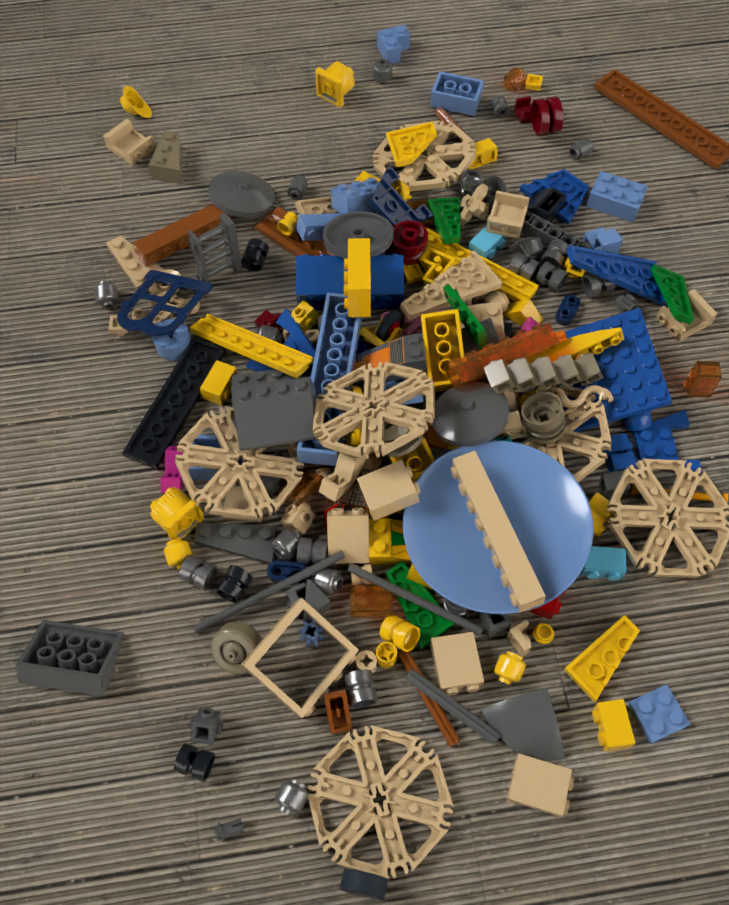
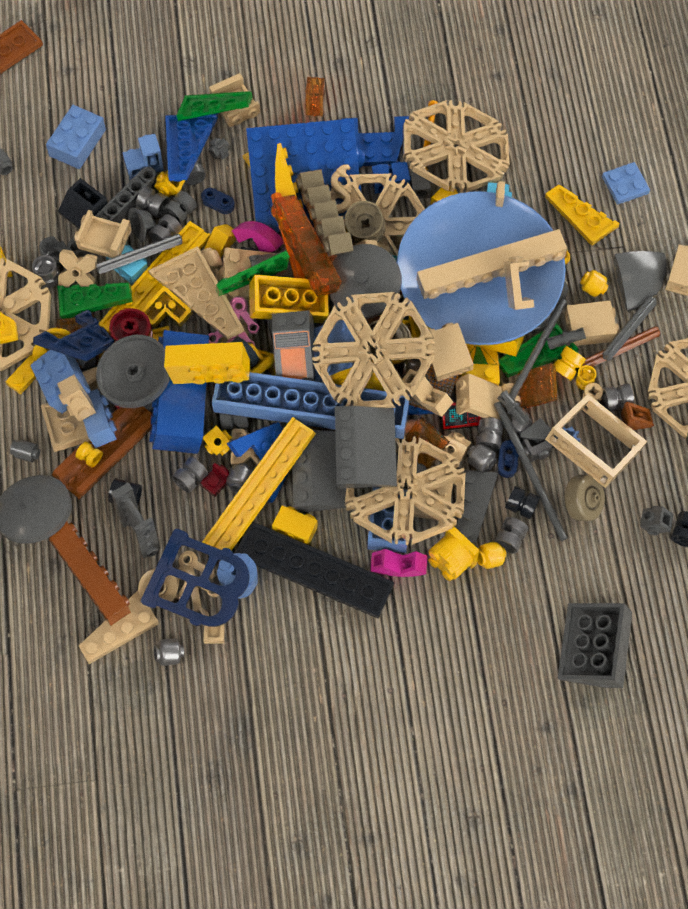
camera: 90 degrees left, 5 degrees up
(270, 298) = (190, 474): none -> flat silver wheel
(332, 199) = (76, 398): none -> tan brick
(335, 567) = (513, 408): none -> dark grey axle
(427, 628) = (566, 338): none -> dark grey pin
(464, 541) = (513, 287): none -> tan panel
(492, 243) = (139, 253): none -> axle
(518, 640) = (573, 273): tan bracket -> none
(565, 183) = (52, 187): blue wing -> none
(587, 534) = (500, 191): none -> tan tile
(613, 725) = (638, 214): yellow brick -> none

